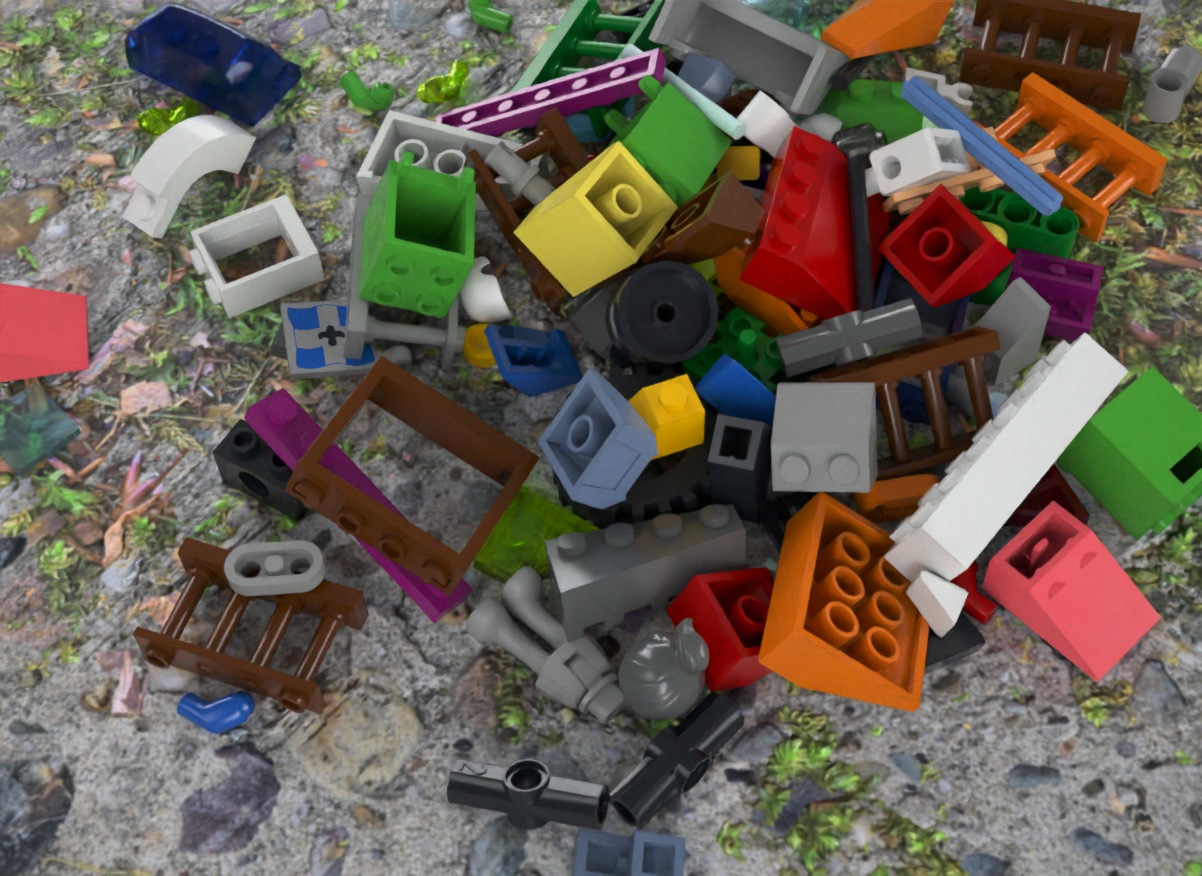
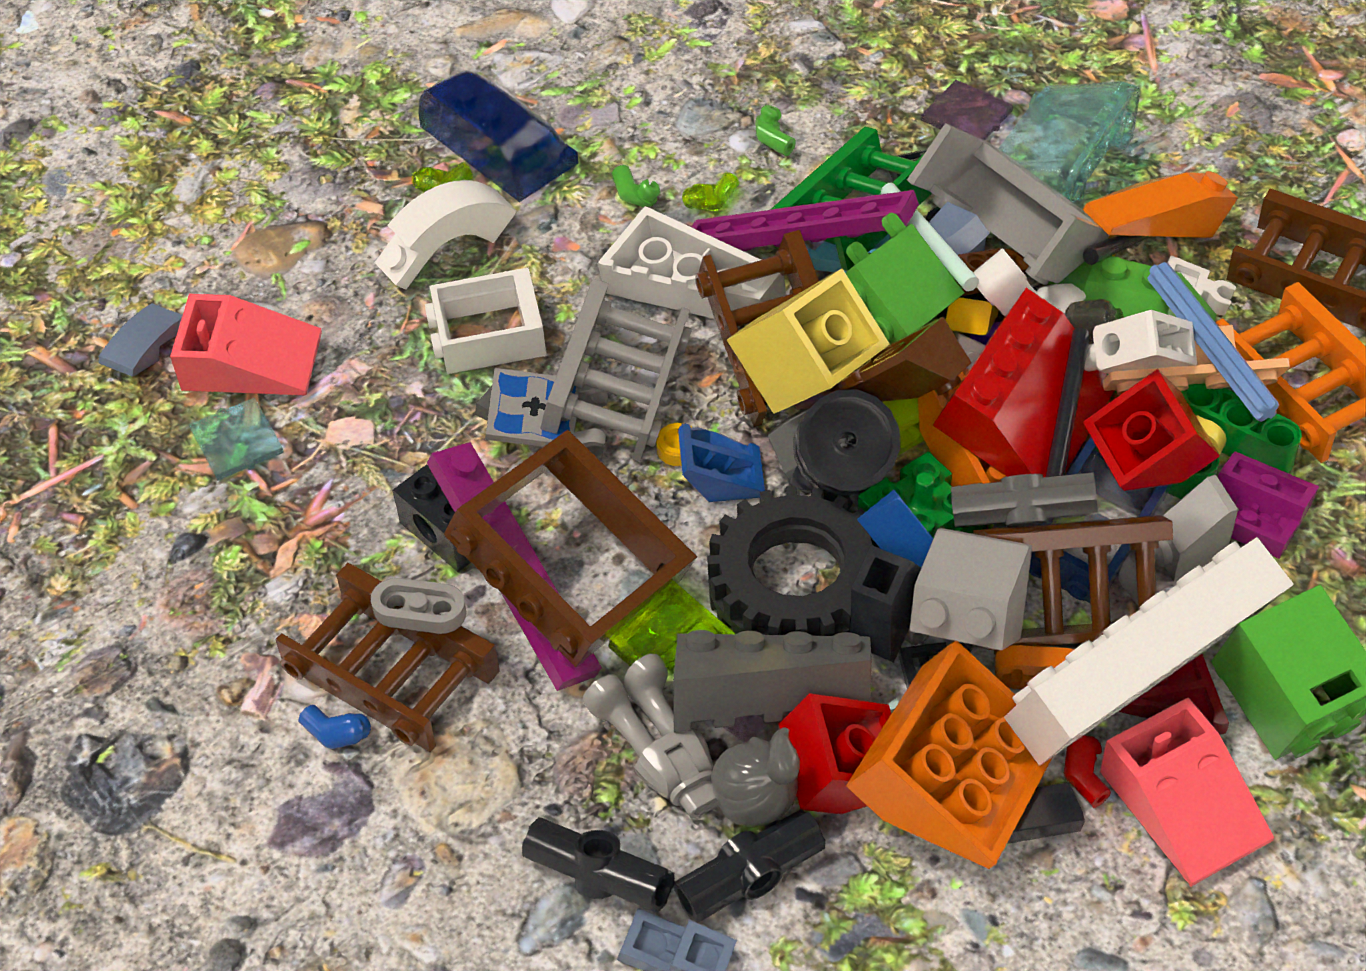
camera: 15 degrees right, 5 degrees down
(418, 238) = (634, 328): bright green container -> none
(482, 294) = (685, 393): white hair -> none
(519, 174) = (747, 286): light grey pin -> none
(598, 443) = (749, 551): sand blue slope -> none
(672, 414) = (811, 544): yellow slope -> none
(937, 601) = (1043, 768): white slope -> none

